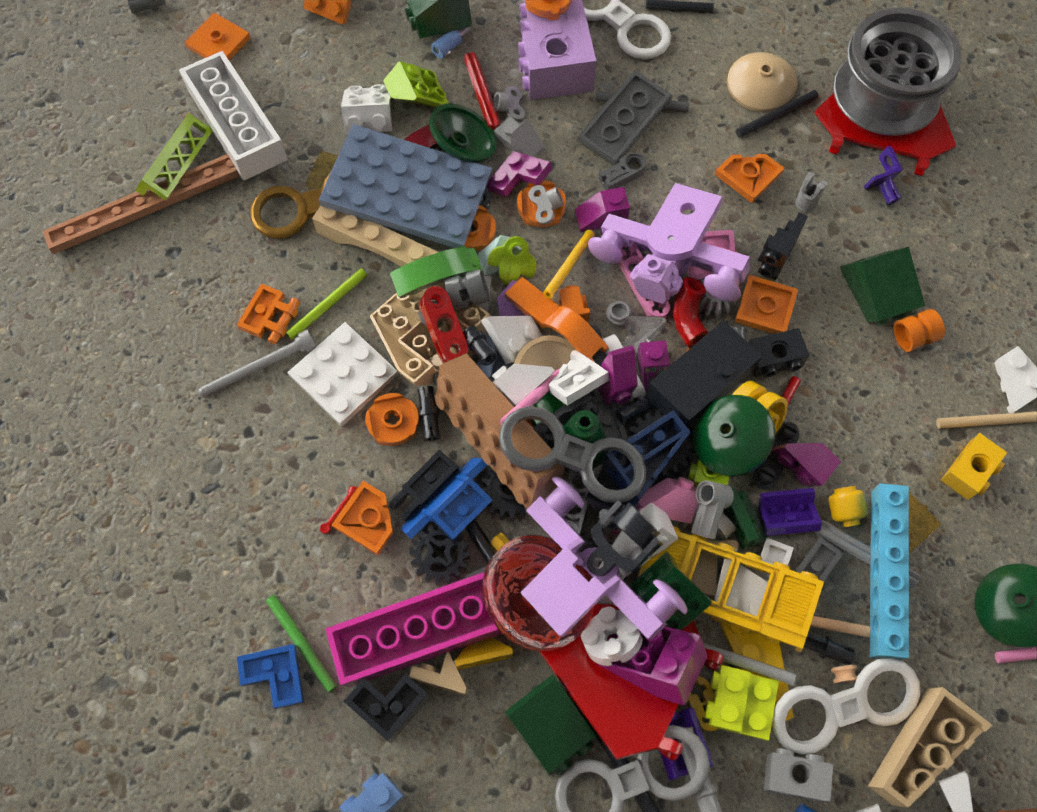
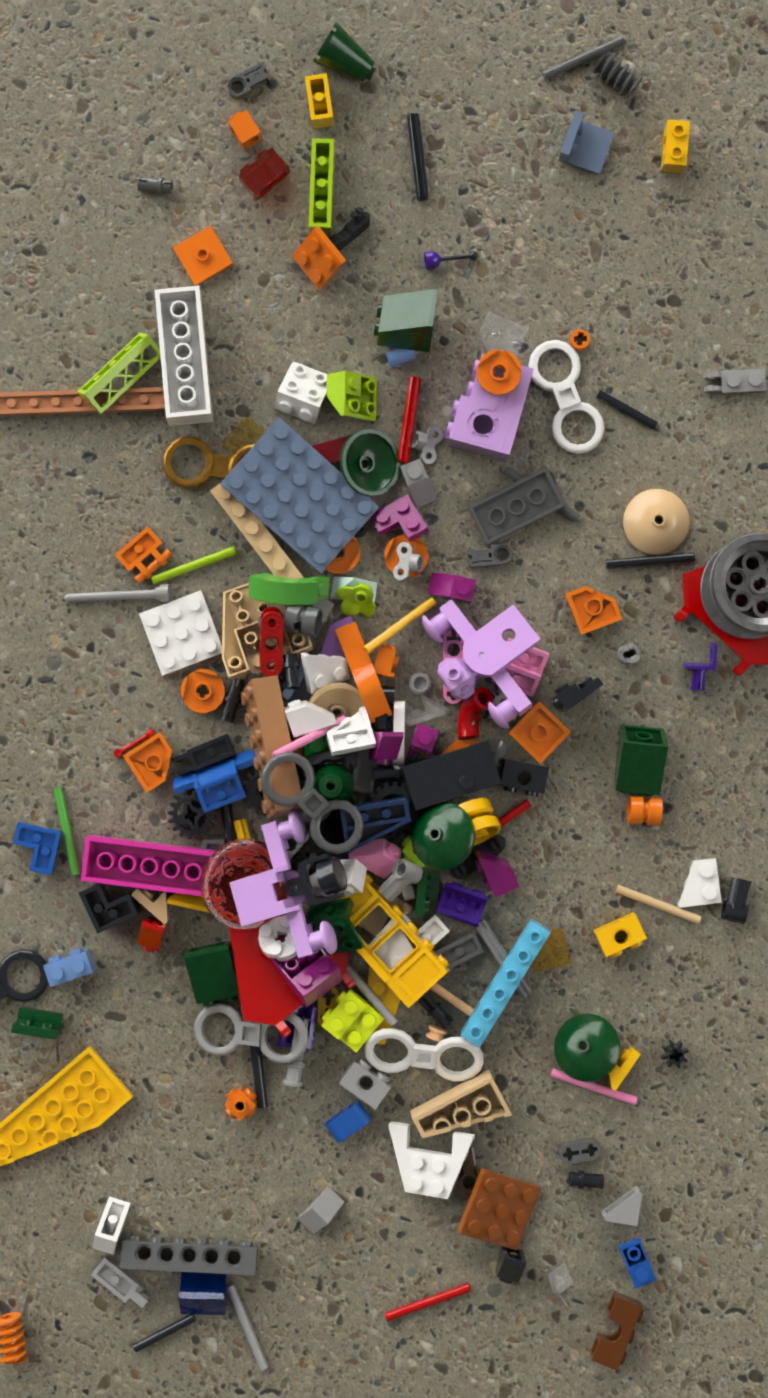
camera: 30 degrees right, 20 degrees up
(455, 714) = (152, 934): none -> red slope
(848, 505) = (508, 919): yellow head -> none

